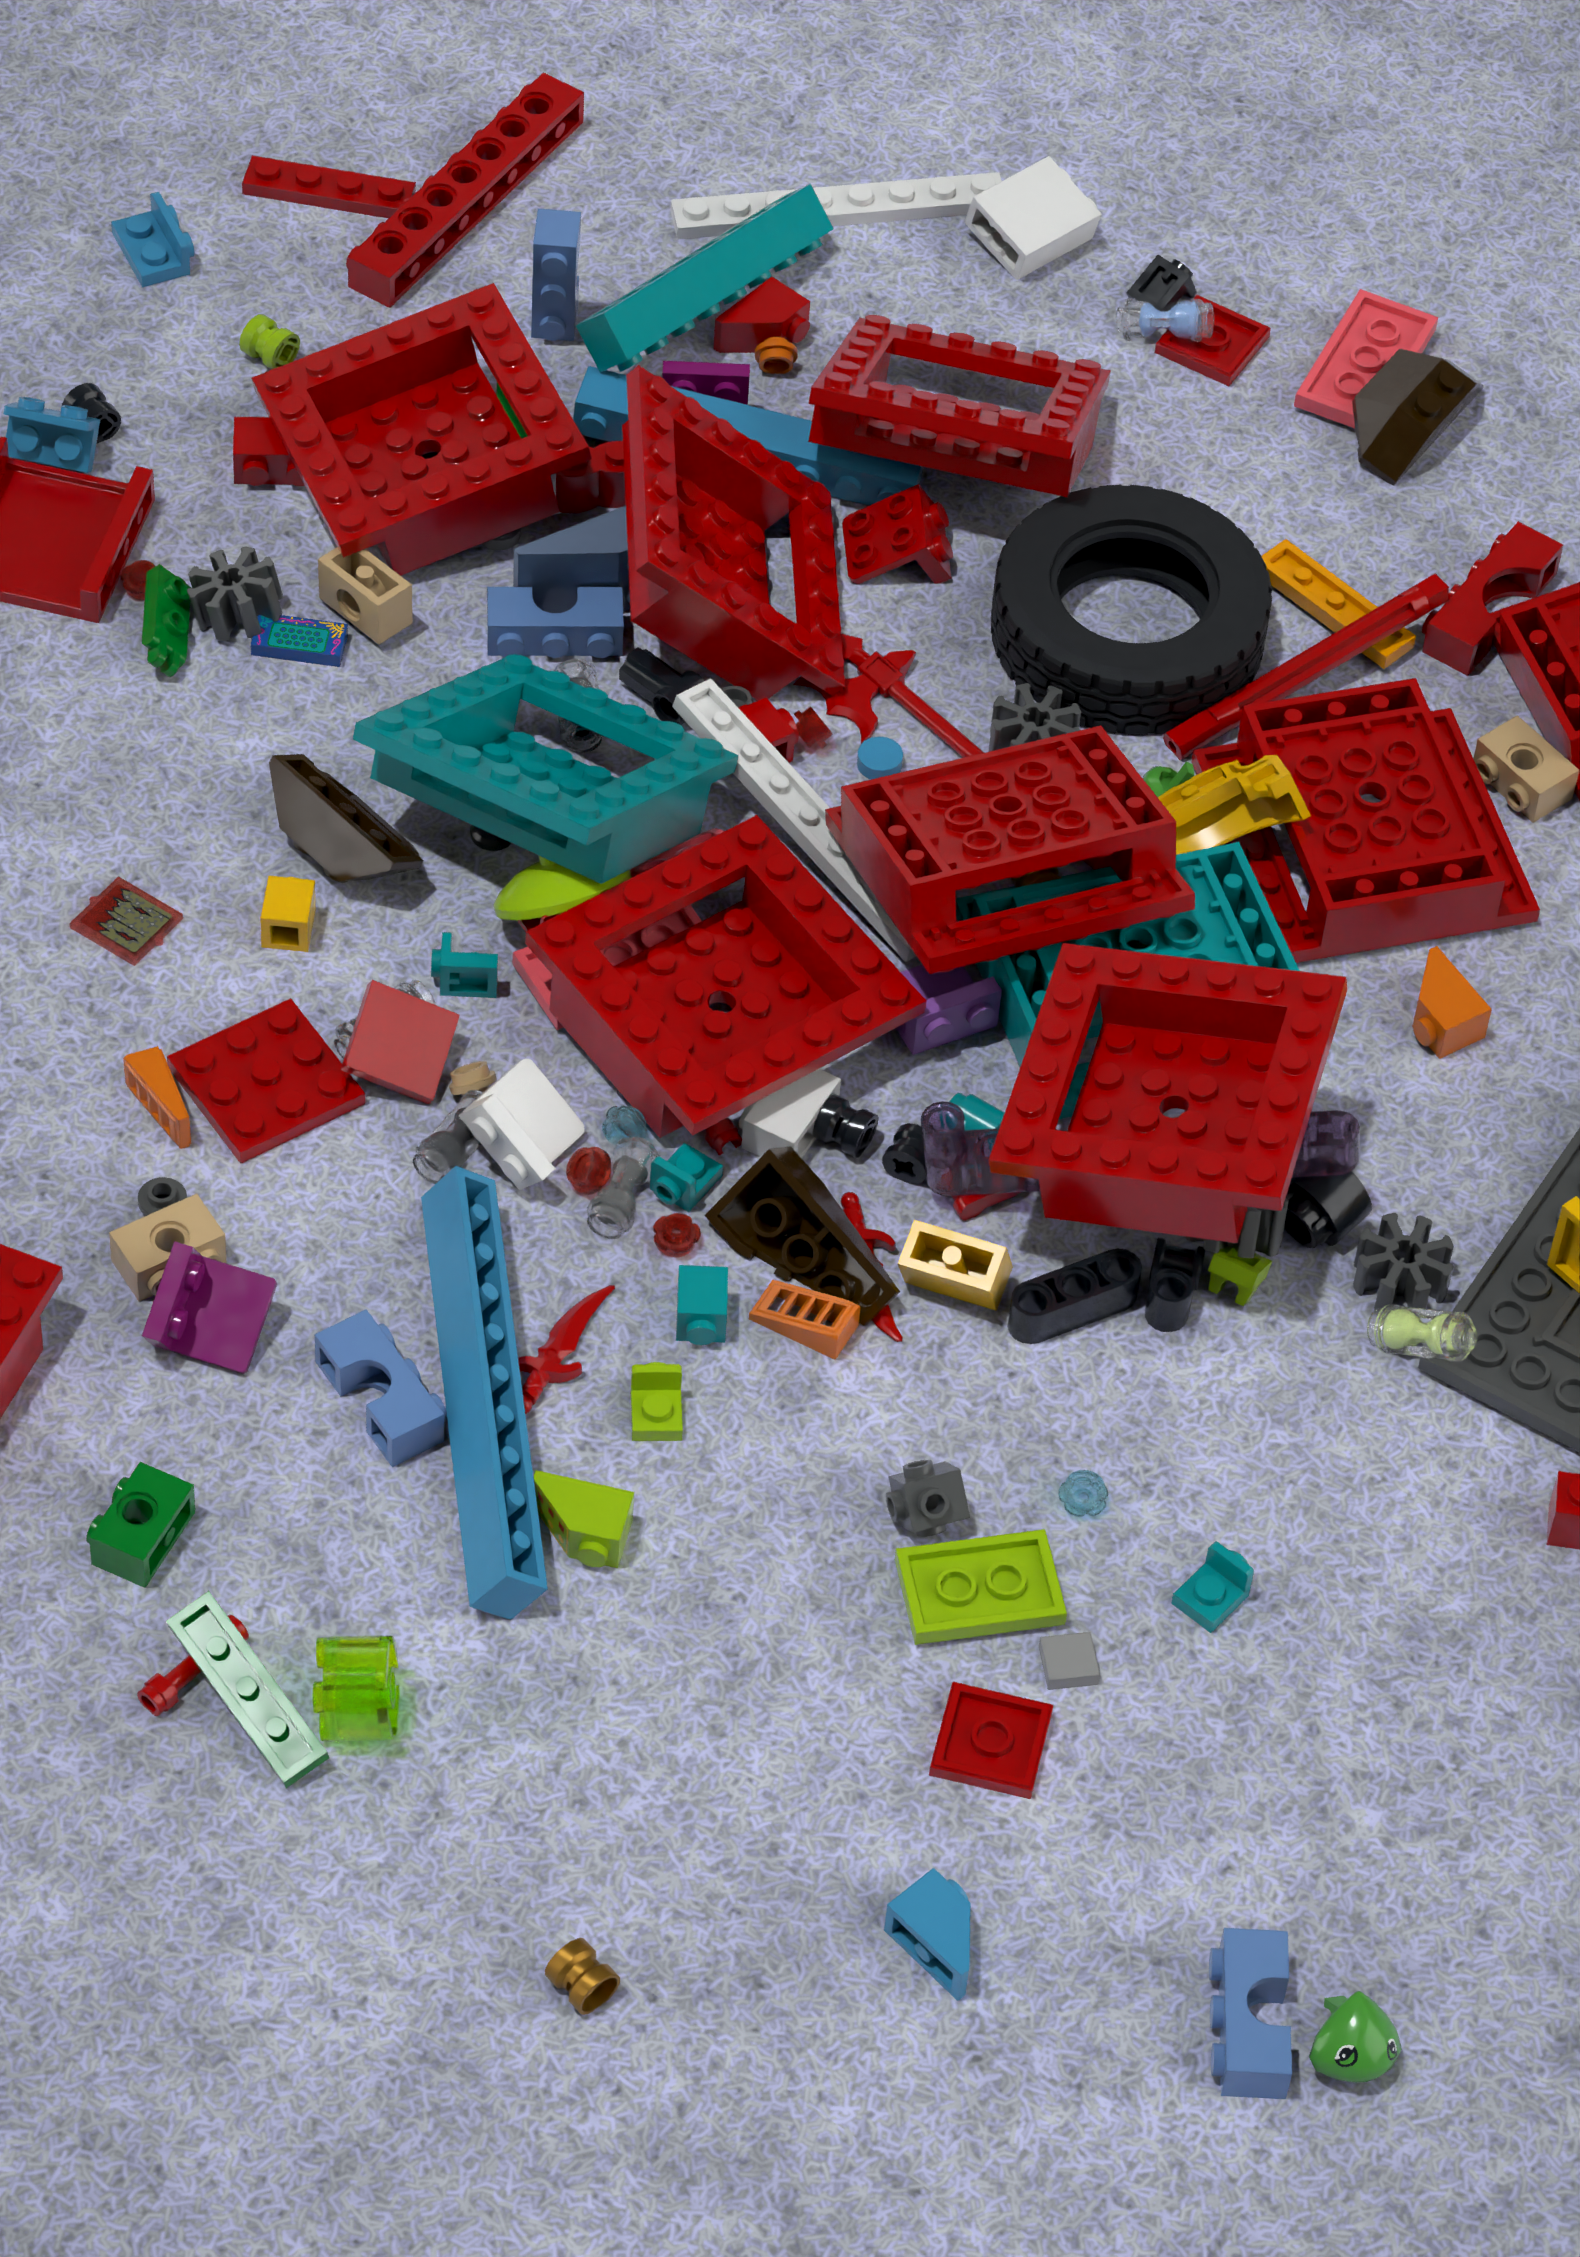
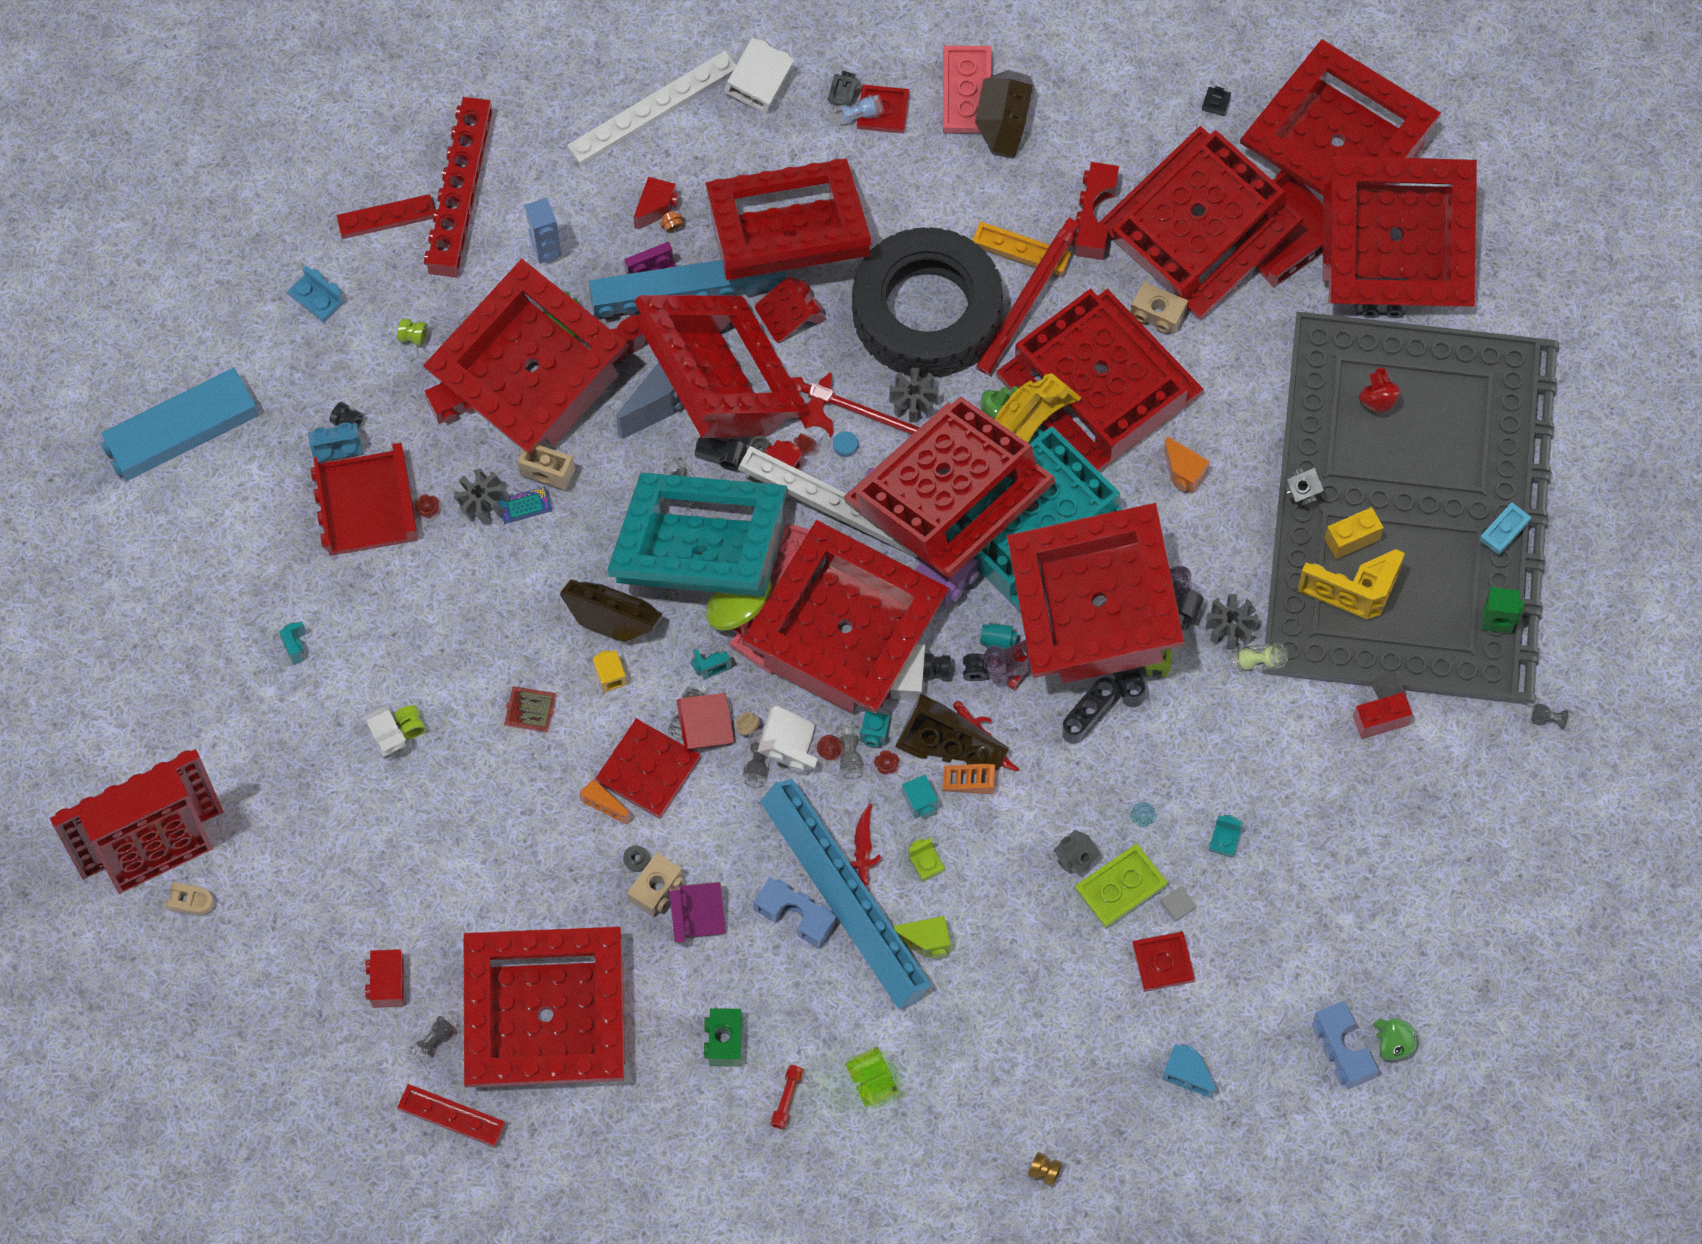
camera: 20 degrees left, 15 degrees up
(166, 620) = (454, 527): green hinge -> none
(247, 1689) = (821, 1100): plate -> none
(587, 629) = (630, 449): medium blue arch -> none
(624, 1123) = (832, 715): clear light blue plate -> none
(703, 279) = (619, 197): teal brick -> none
(955, 1265) = (1028, 721): yellow brick -> none

